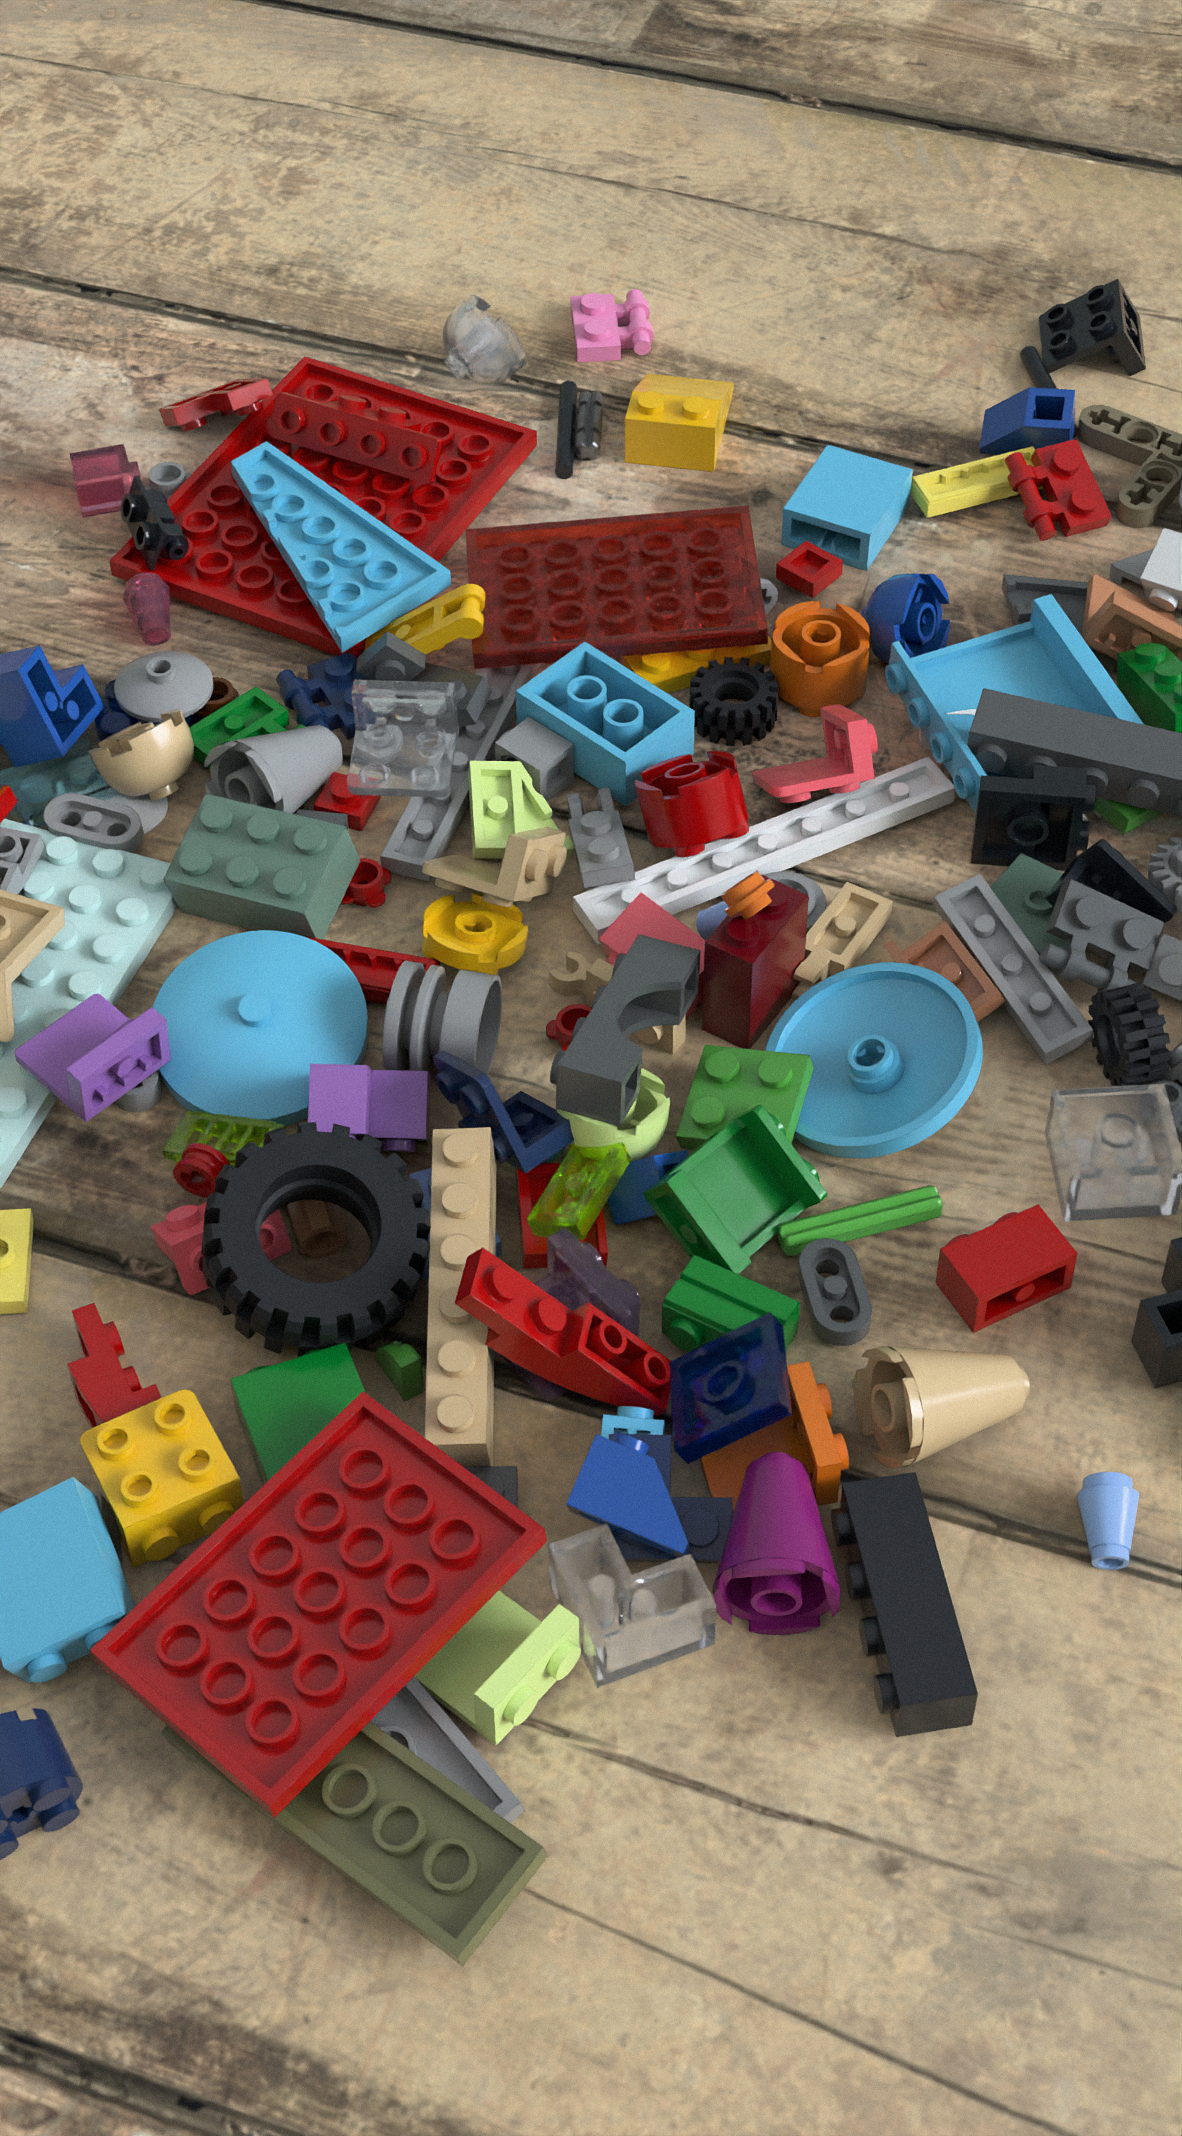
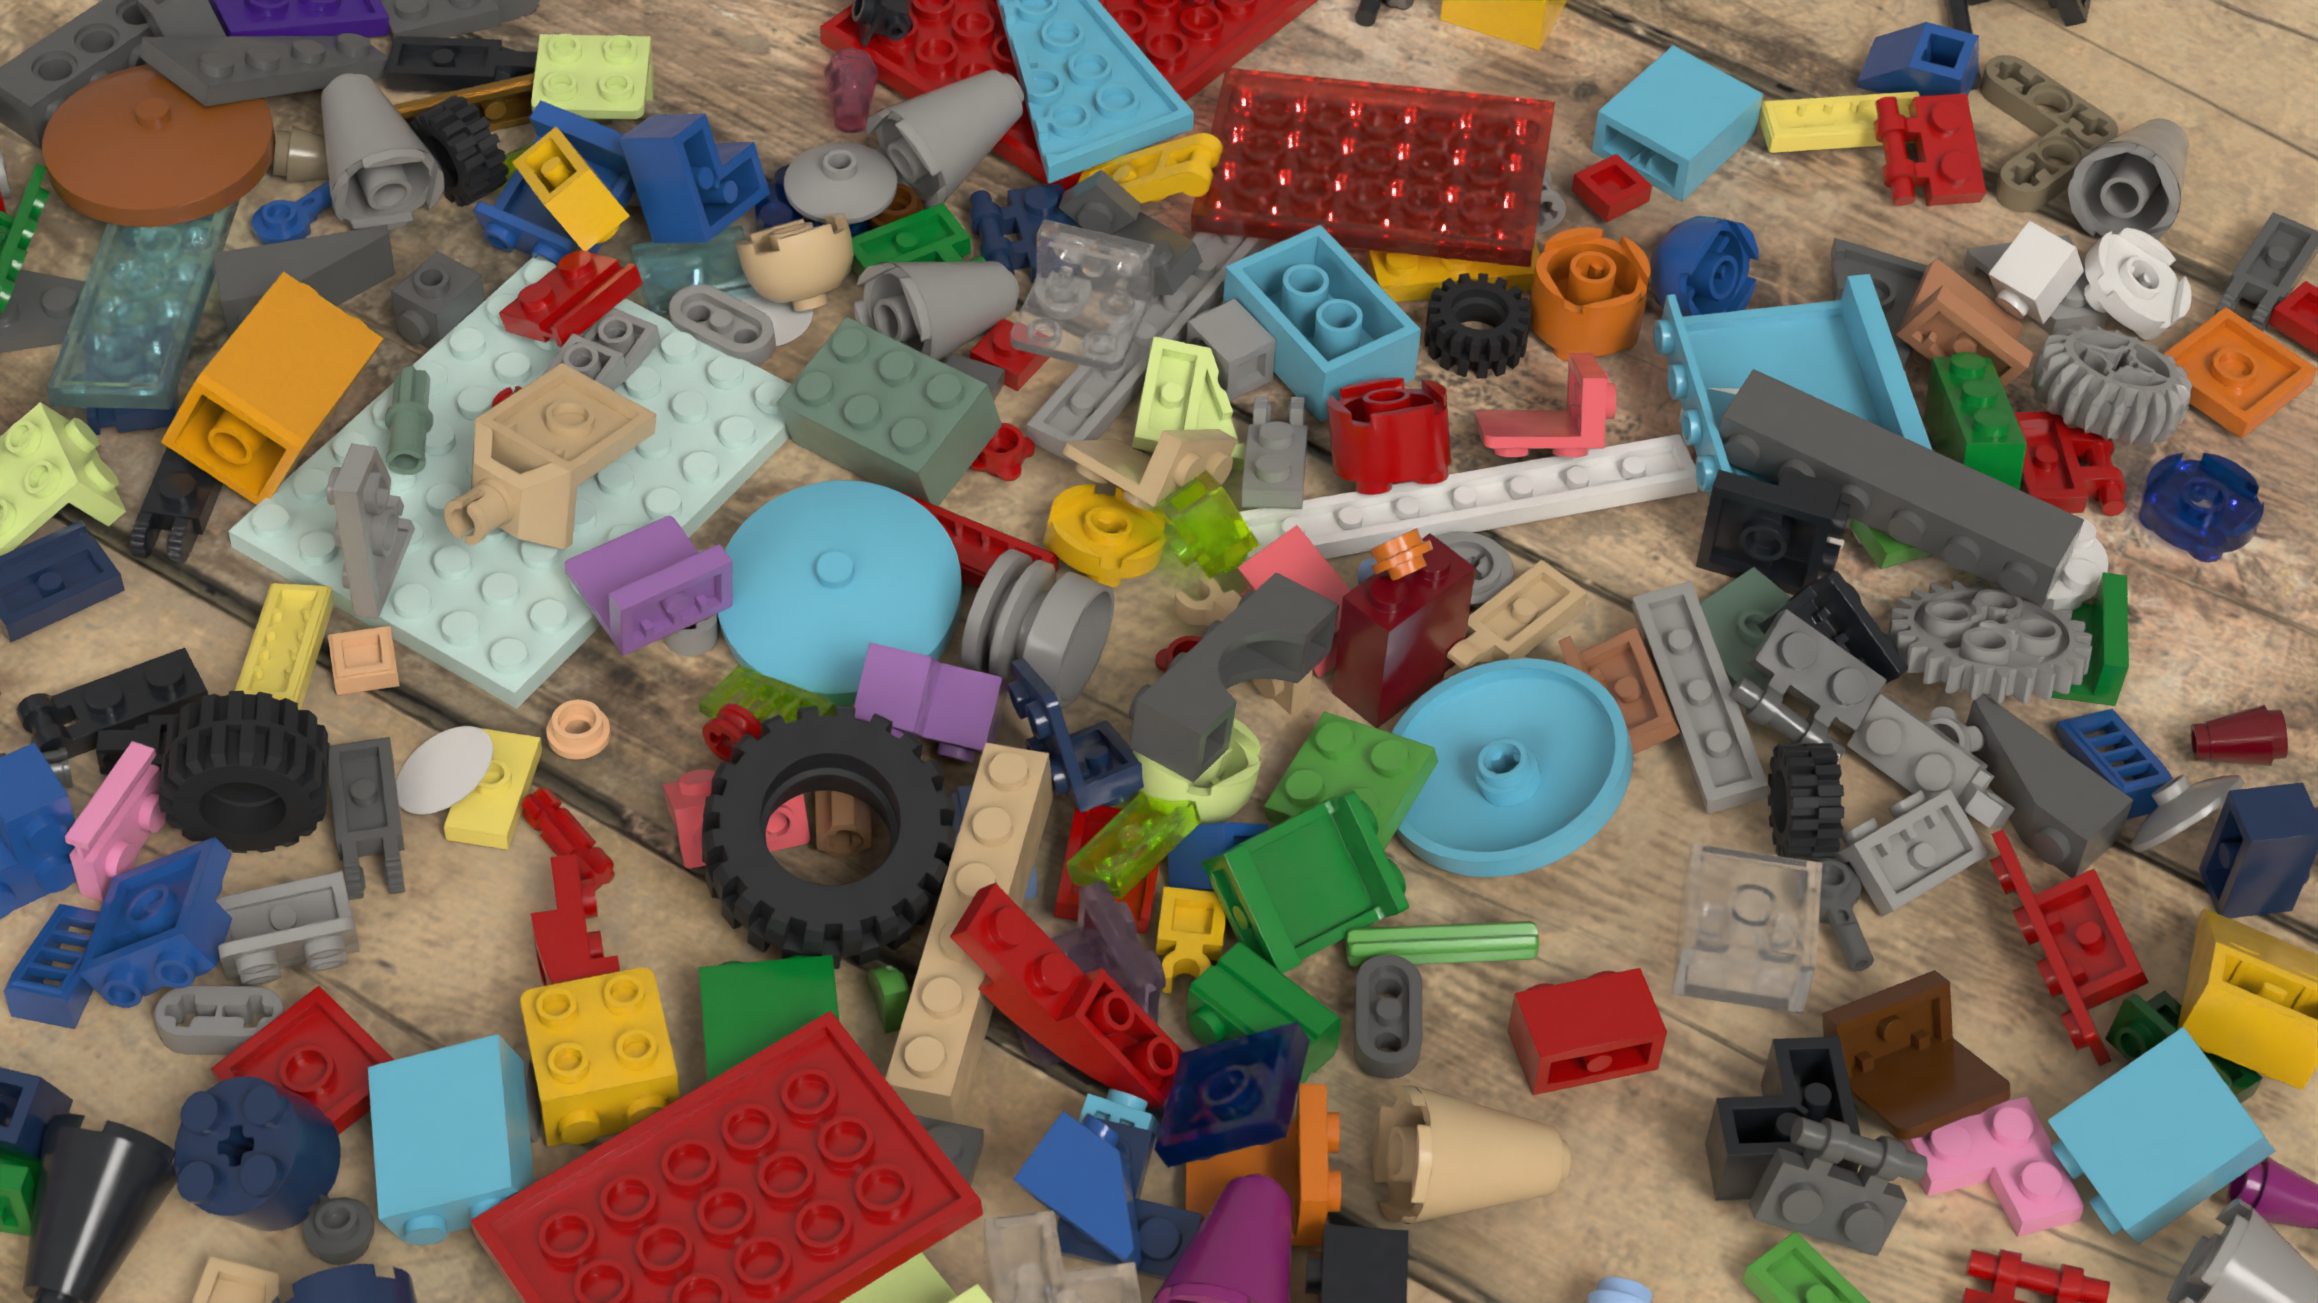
camera: 10 degrees right, 0 degrees up
(57, 1185) = (575, 718): none -> light nougat plate
(76, 1288) = (567, 835): none -> red axle
(244, 626) = (946, 132): none -> light grey cone
(563, 909) = (1206, 527): none -> clear neon green brick
(645, 1255) = (1189, 932): none -> yellow plate

